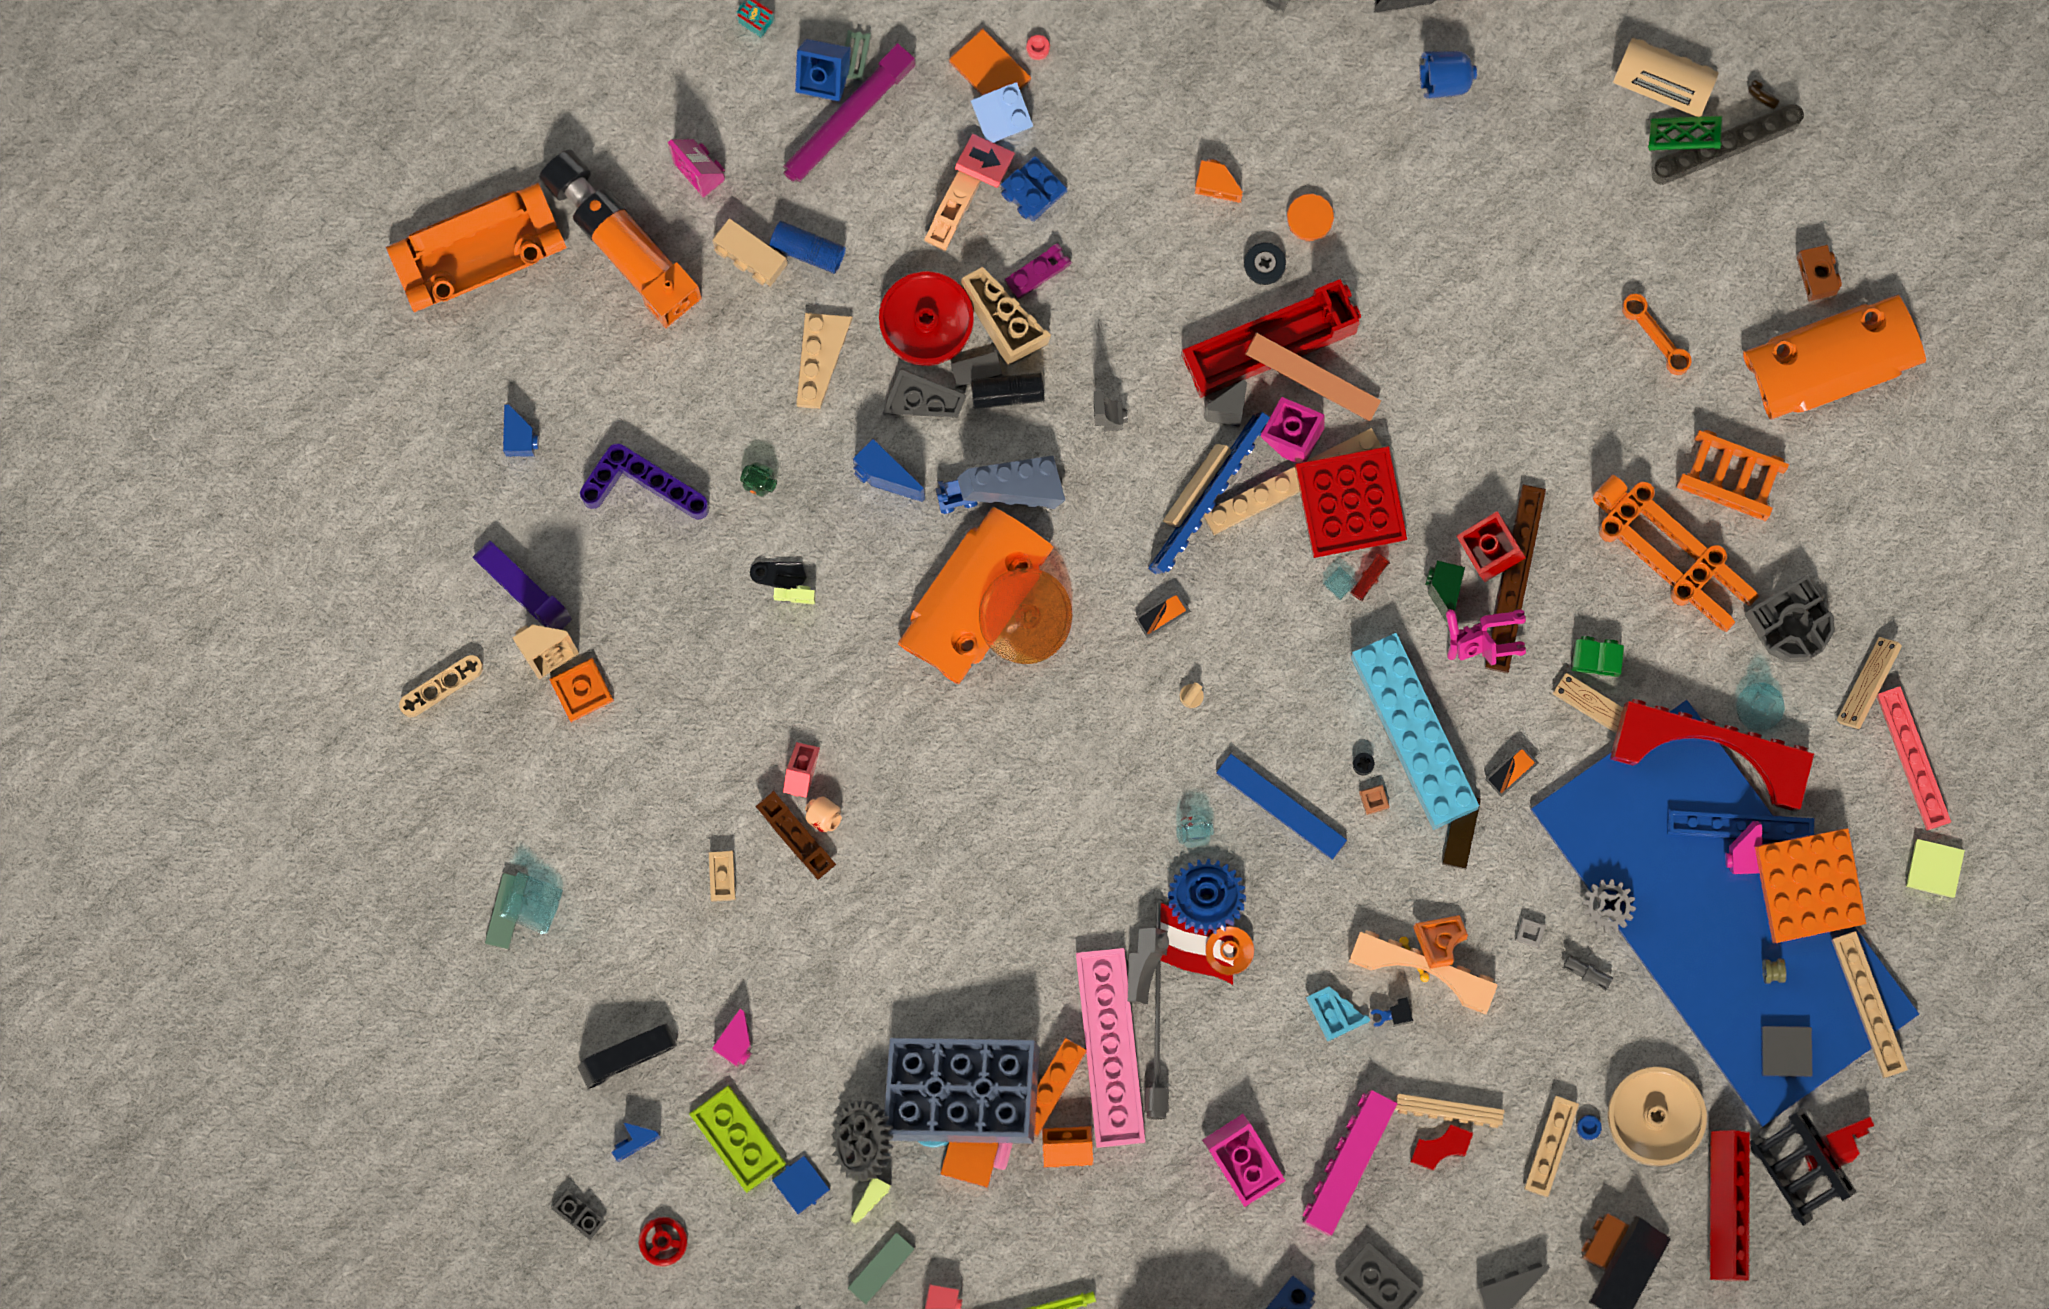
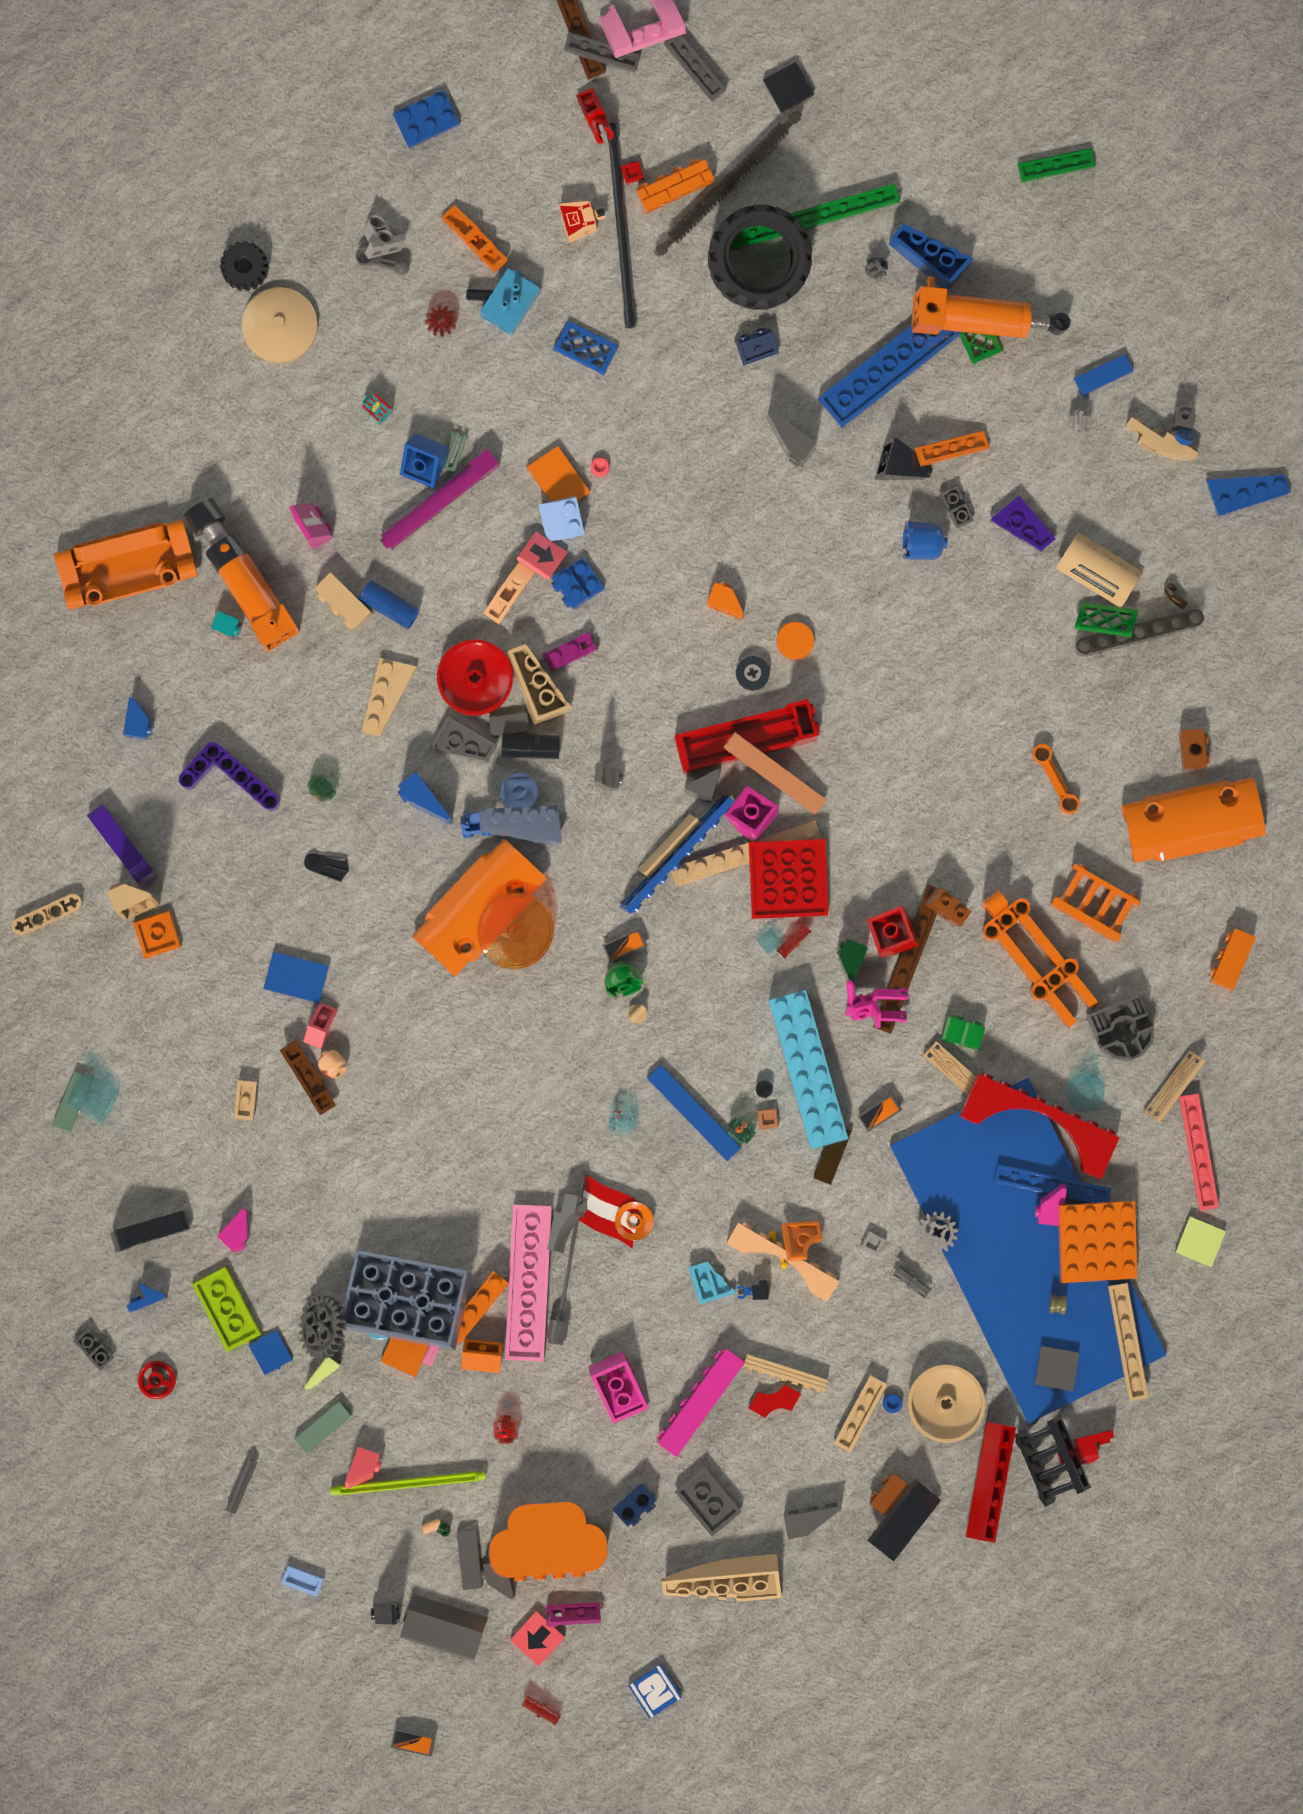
camera: 10 degrees right, 5 degrees up
(610, 302) = (226, 625): none -> teal brick
(762, 716) = (296, 977): none -> blue tile
(801, 594) = (341, 885): yellowish green plate -> none
(1001, 445) = (519, 791): none -> light blue tile
(1111, 1235) = (505, 1429): none -> clear red head
(1167, 655) = (623, 979): none -> green cylinder
(1210, 913) = (622, 1189): blue gear -> none
(1344, 817) = (741, 1130): none -> clear green head
(1478, 29) = (956, 506): none -> dark grey slope
(1553, 506) = (948, 907): none -> dark orange brick
(1564, 37) = (1023, 524): none -> dark purple wing
(1912, 517) = (1232, 959): none -> orange brick

